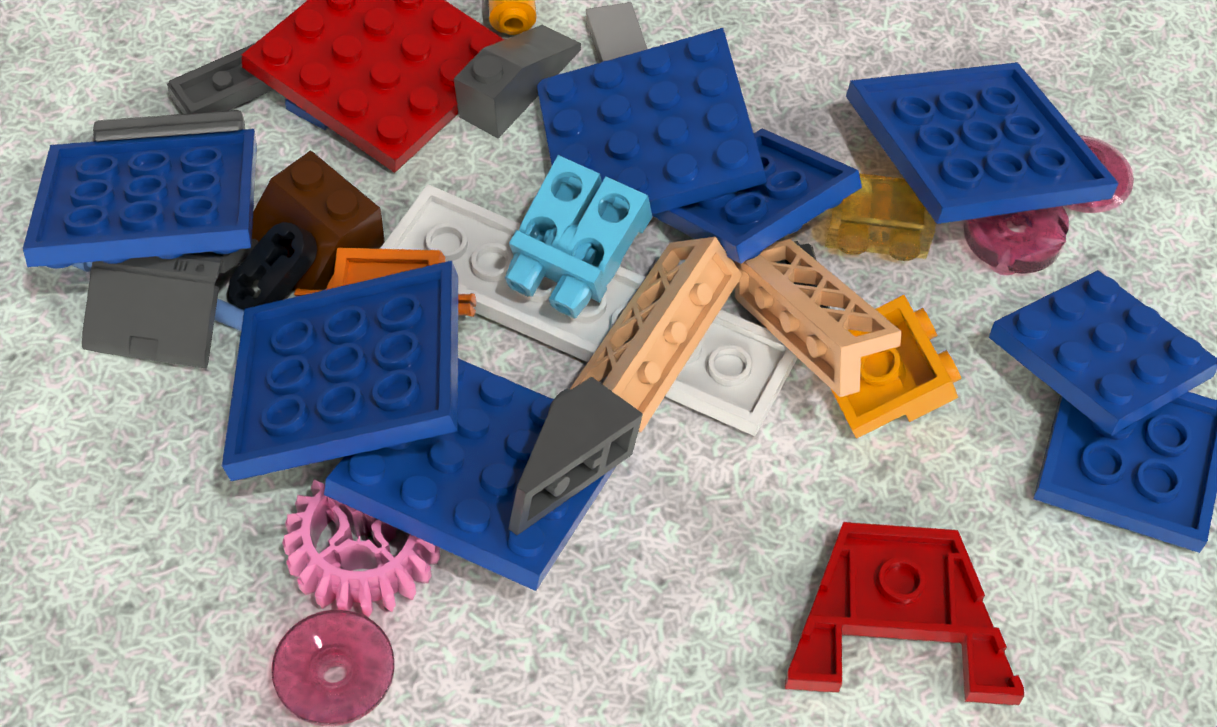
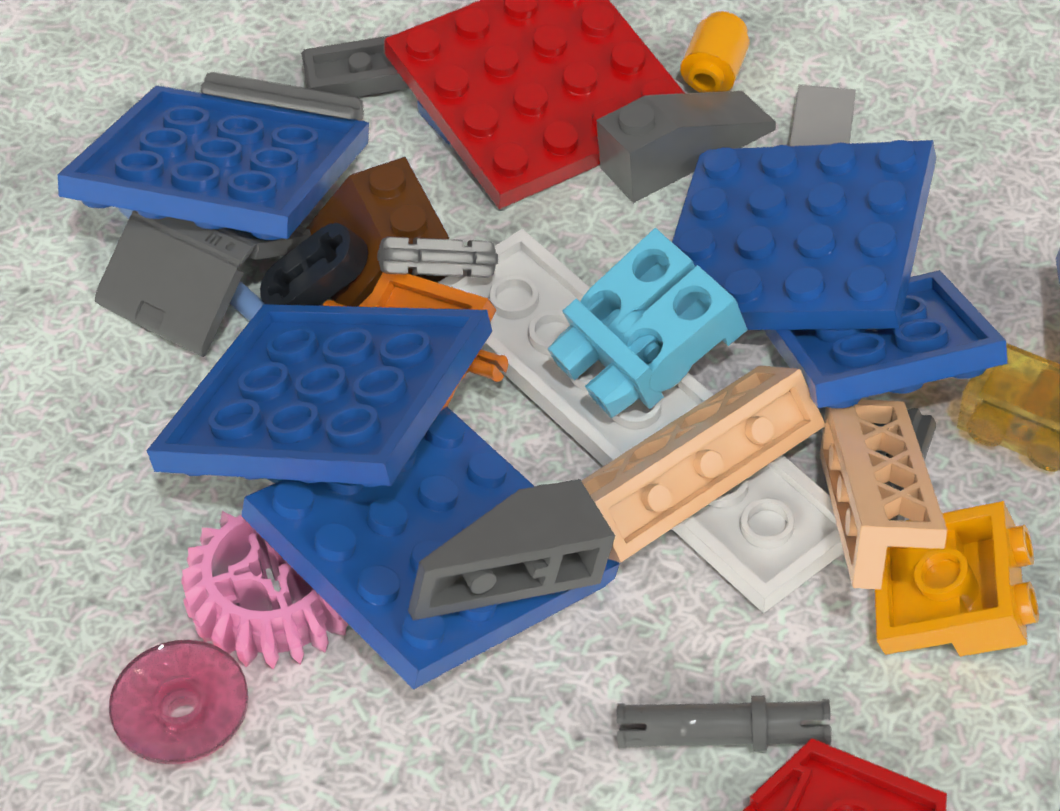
camera: 30 degrees right, 5 degrees down
(378, 227) = (437, 257): none -> axle
(791, 525) = (724, 723): none -> dark grey pin

